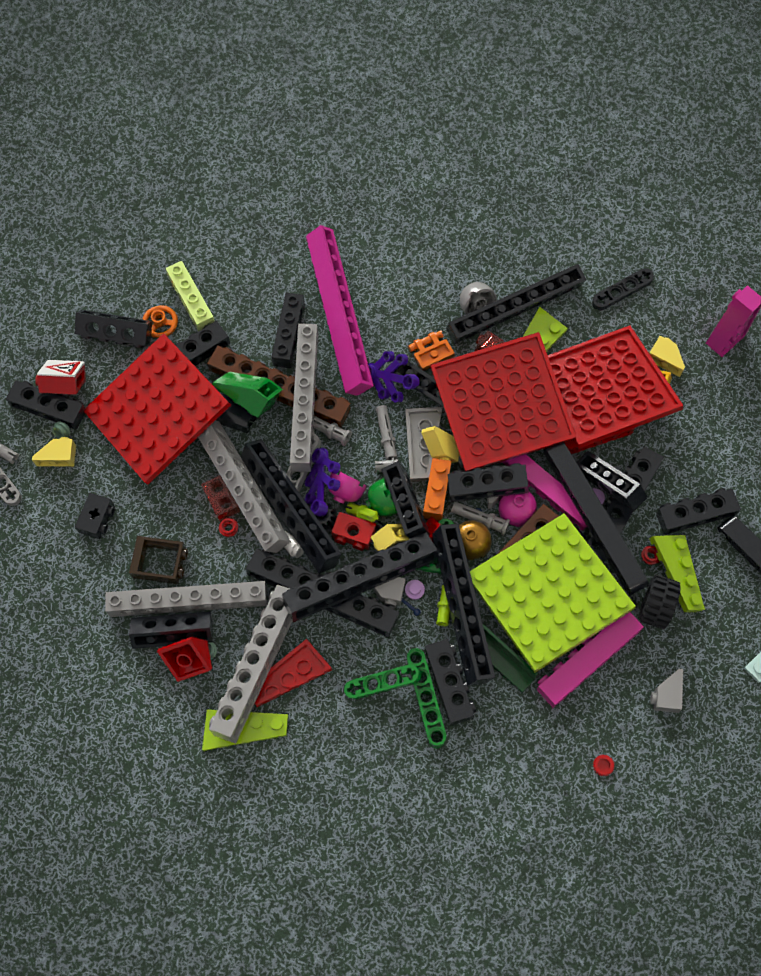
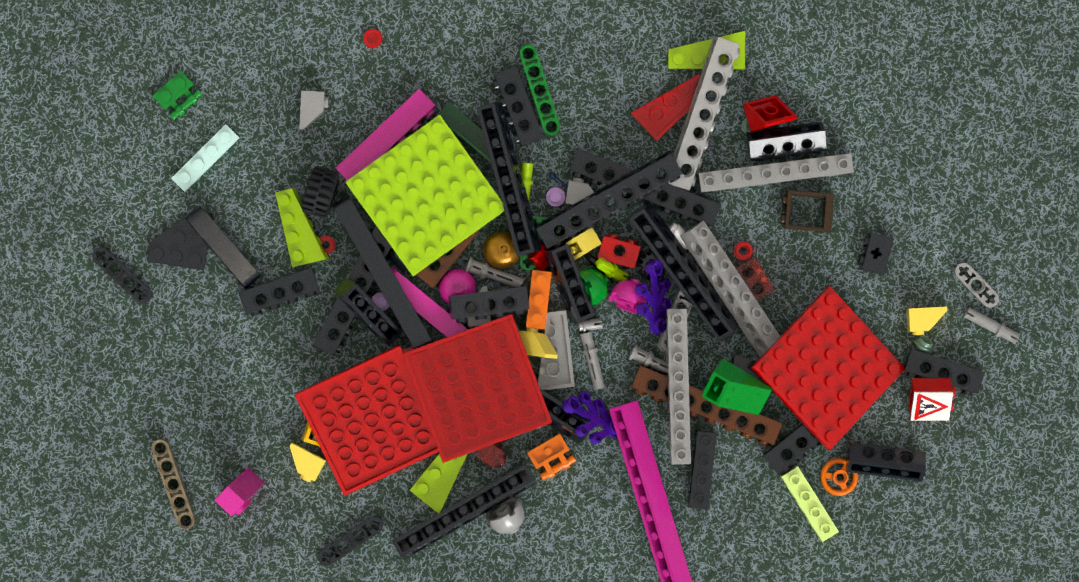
camera: 170 degrees right, 20 degrees up
(383, 685) = (581, 101): green beam -> none

